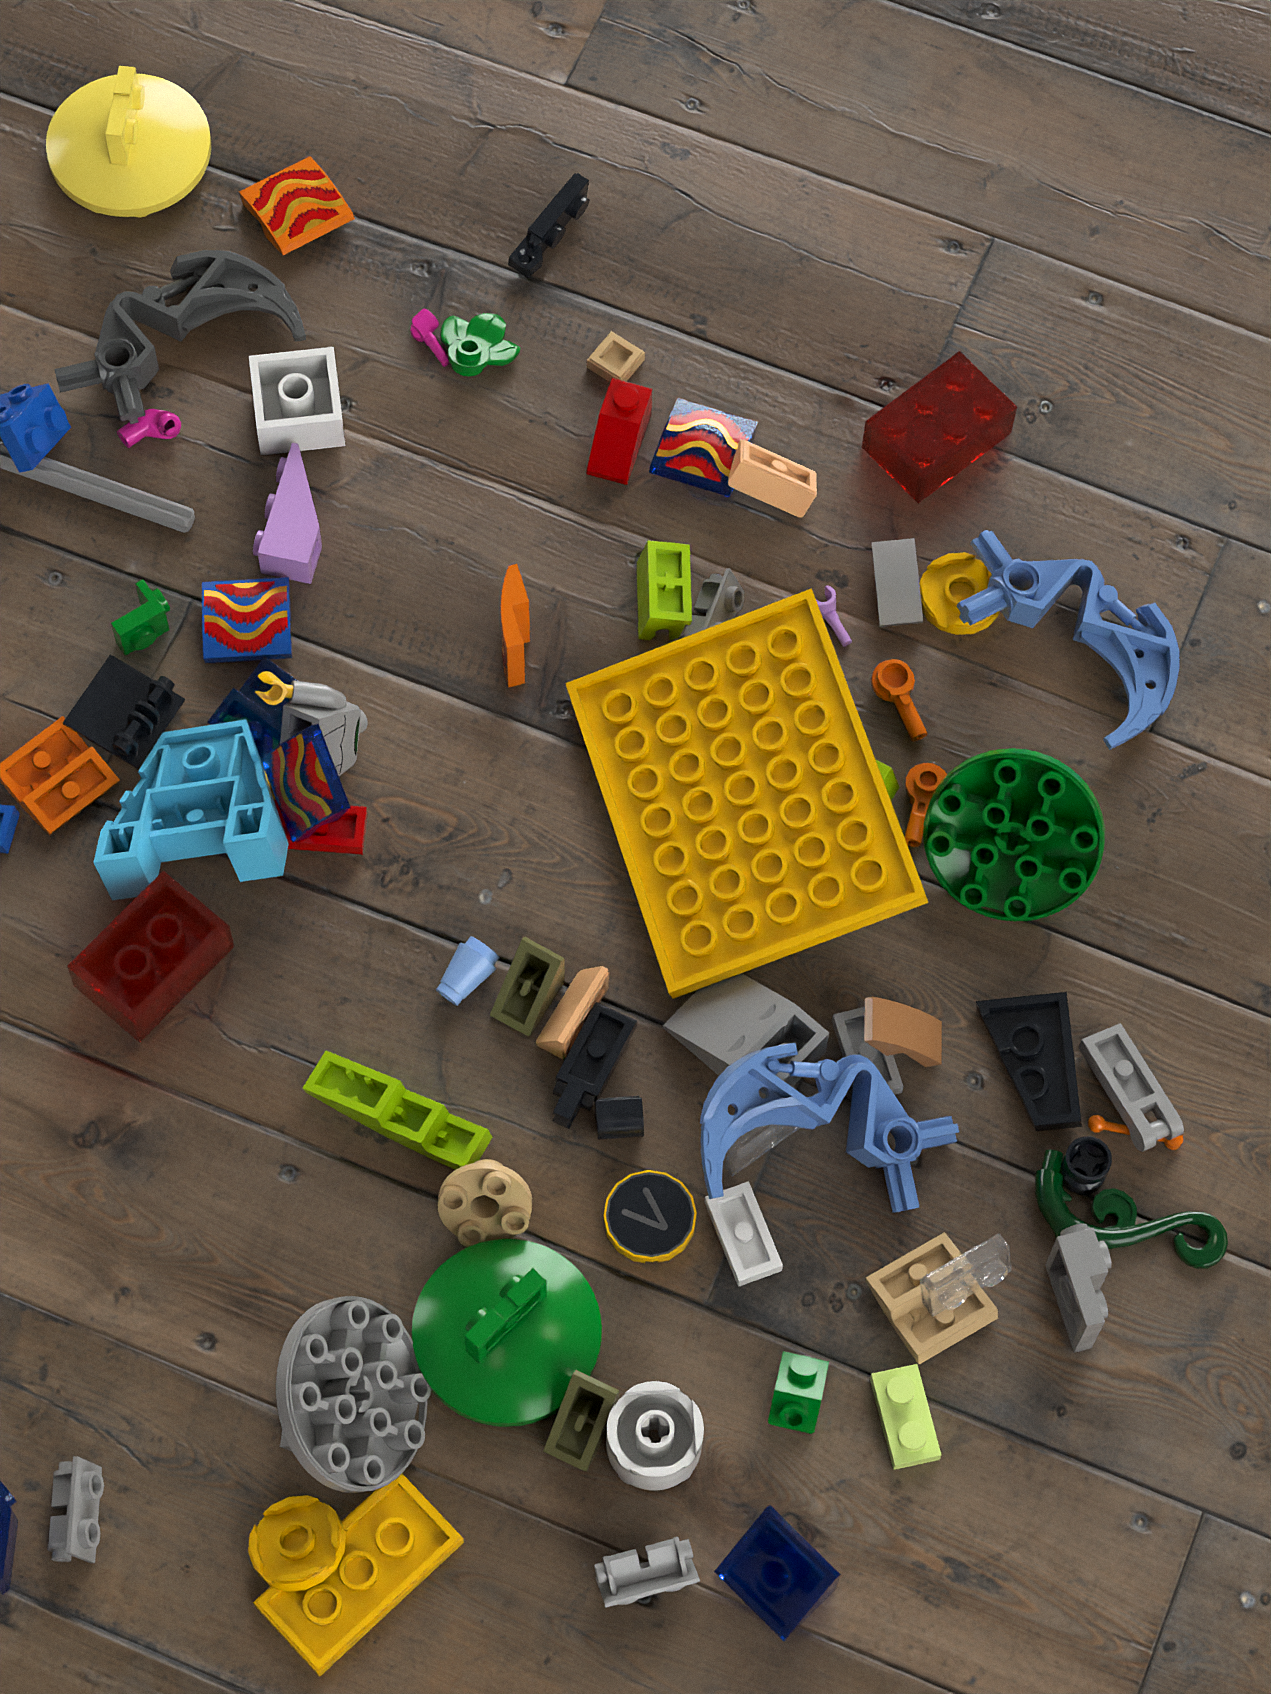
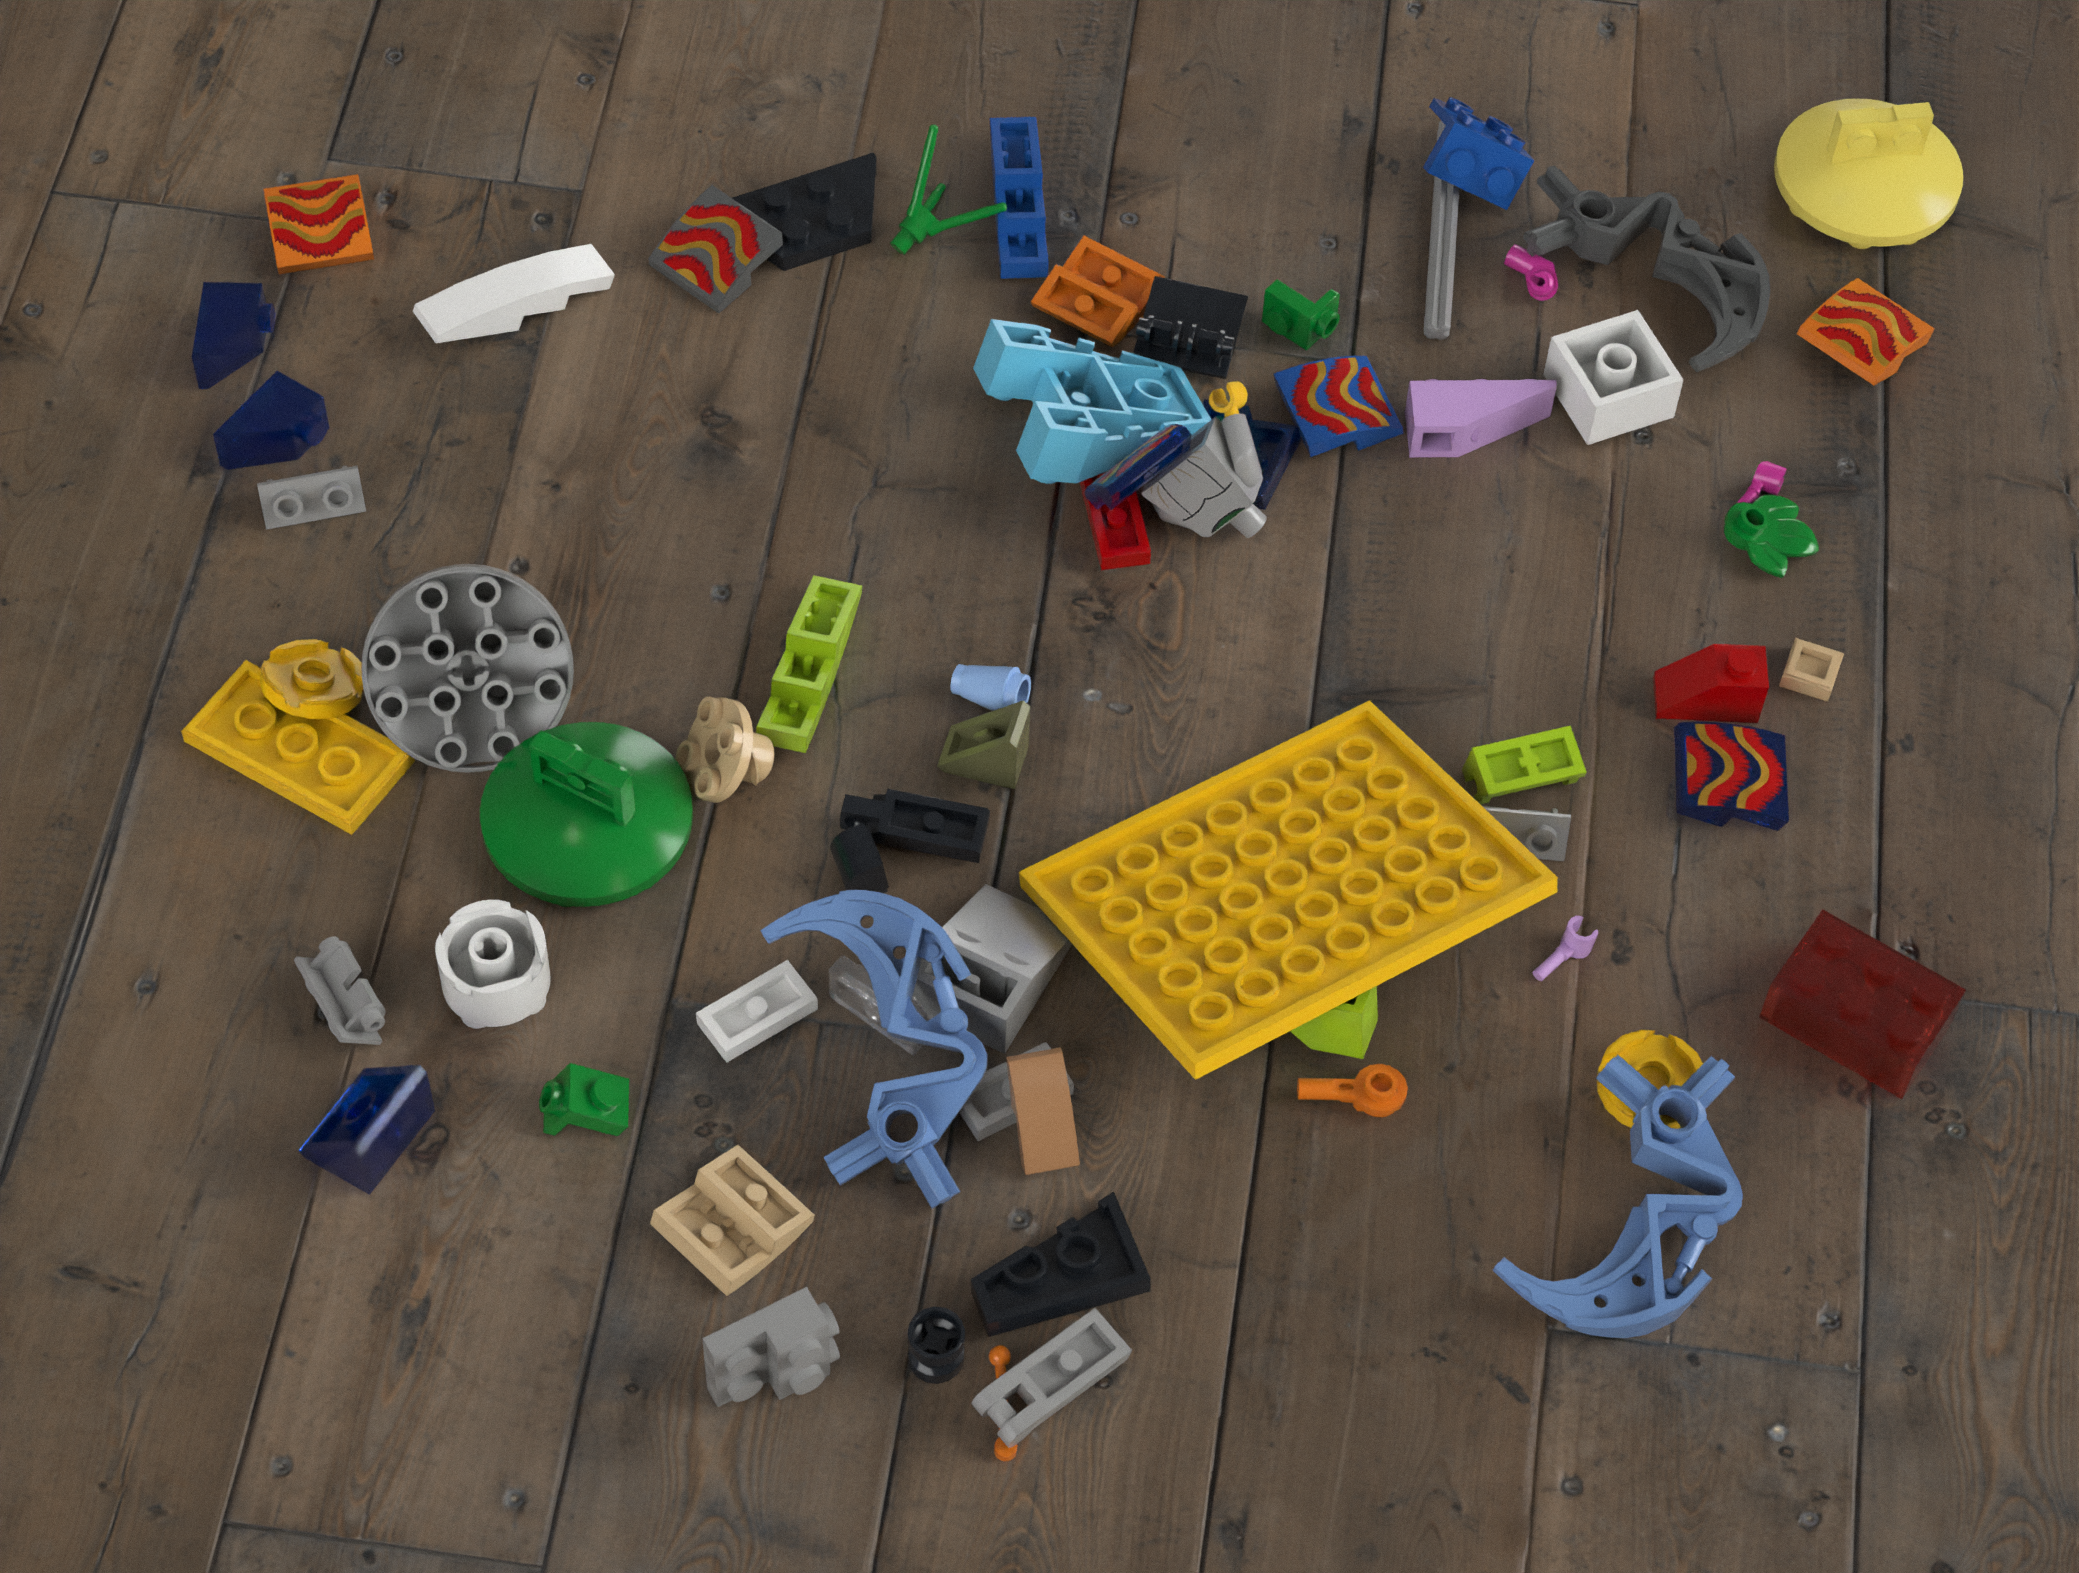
camera: 75 degrees right, 10 degrees down
(151, 956) = (913, 404): clear red brick -> none
(514, 626) = (1412, 621): orange slope -> none
(550, 225) = (1954, 561): black hinge -> none
(572, 1011) = (1005, 807): light nougat slope -> none
(581, 1421) = (514, 882): olive slope -> none
(649, 1216) = (742, 909): black tile -> none
(772, 479) = (1717, 847): light nougat slope -> none
(894, 682) = (1499, 1029): orange plate -> none
(897, 582) = (1636, 998): light grey slope -> none
(905, 1416) = (583, 1220): yellowish green plate -> none
(966, 1274) = (758, 1234): clear plate -> none
(1014, 834) = (1325, 1168): green bracket -> none
(1125, 1233) = (870, 1412): dark green plant -> none

